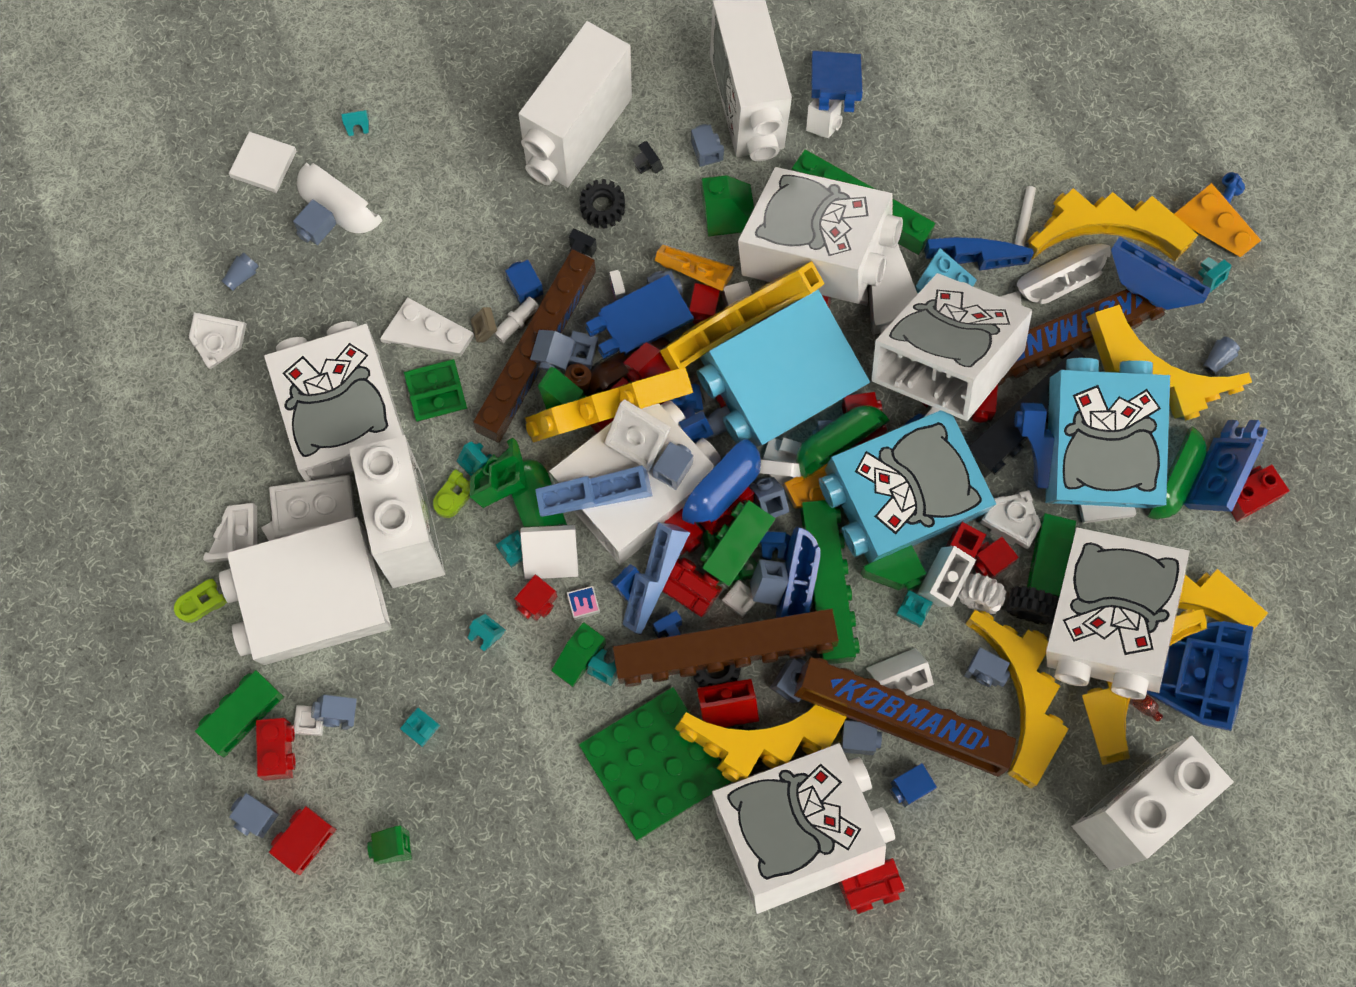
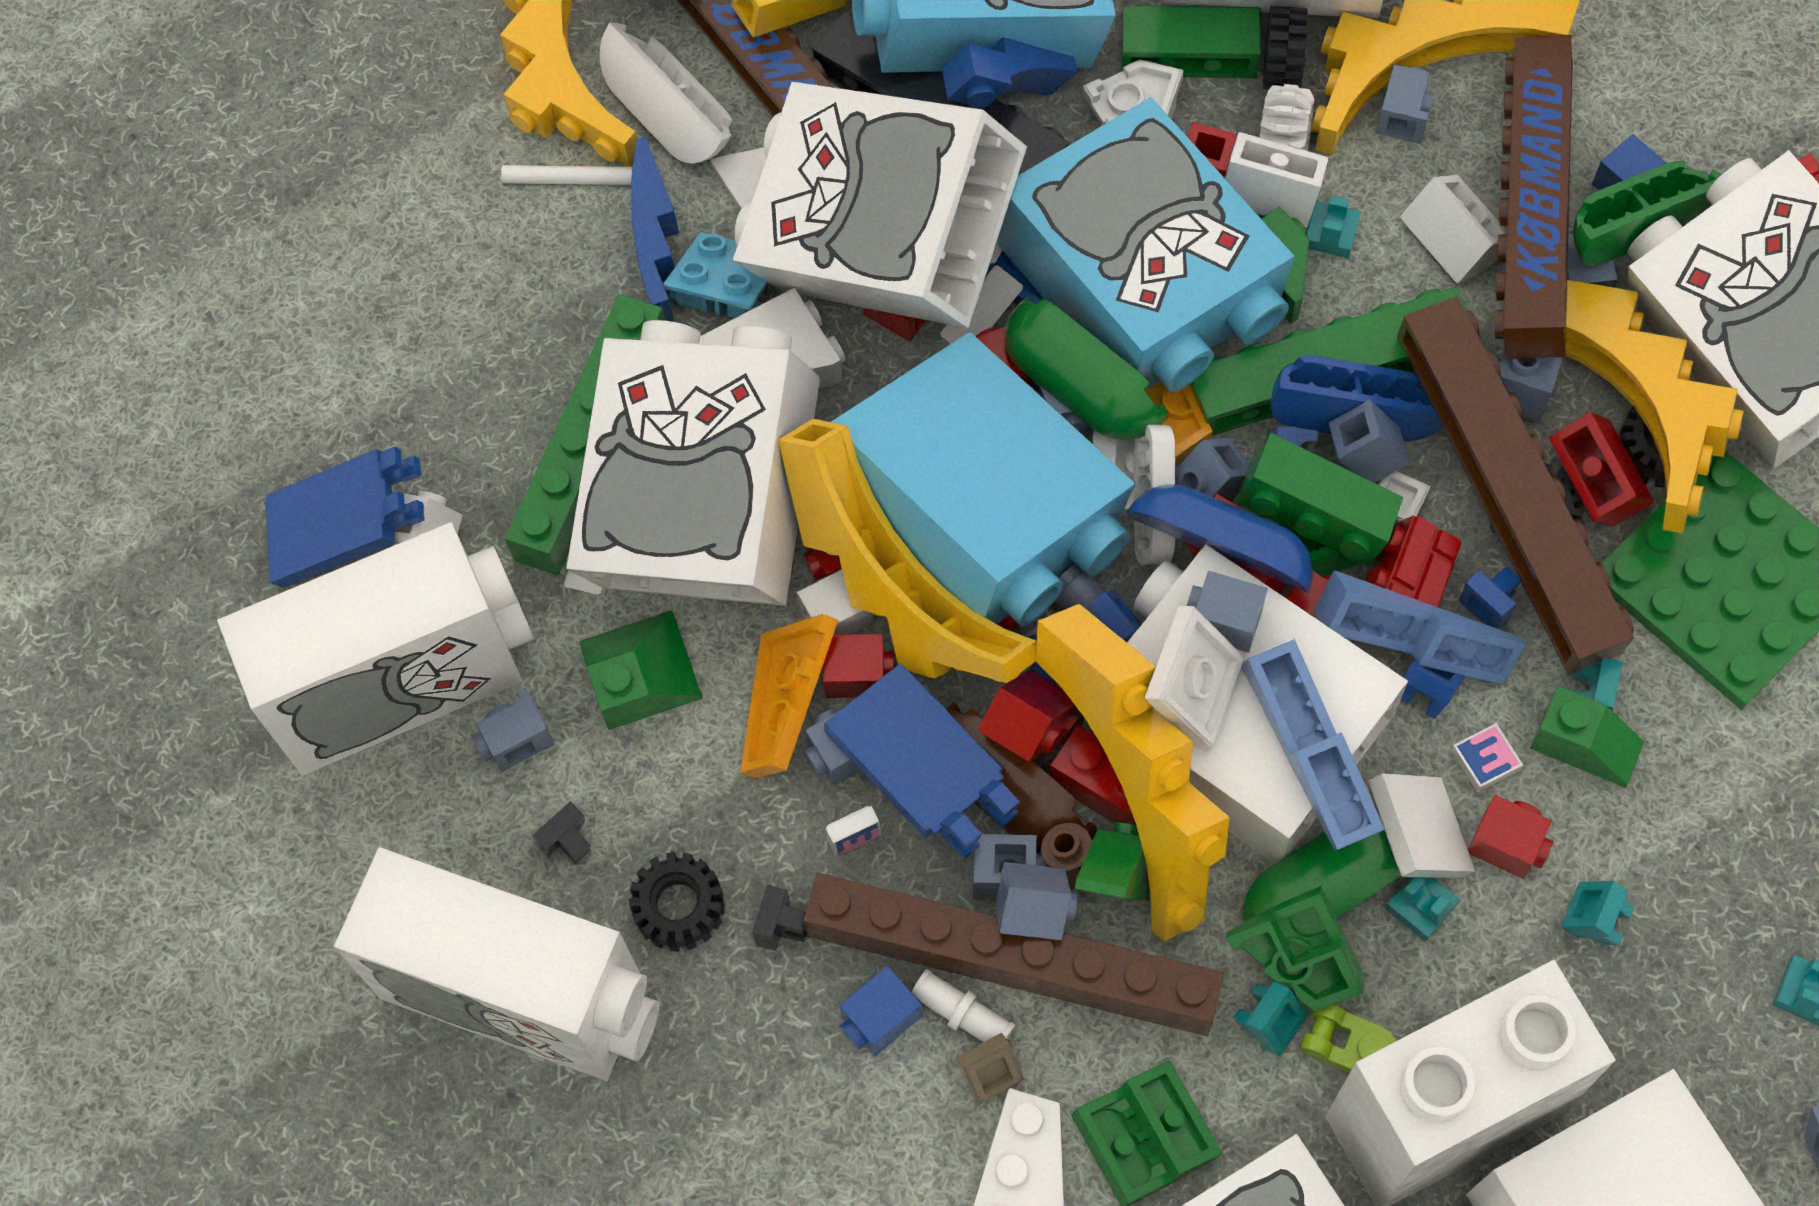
camera: 95 degrees left, 5 degrees down
(878, 756) = (1622, 211): none -> green brick
(897, 408) = (994, 298): none -> white sticker
(994, 558) = (1217, 109): red brick -> none

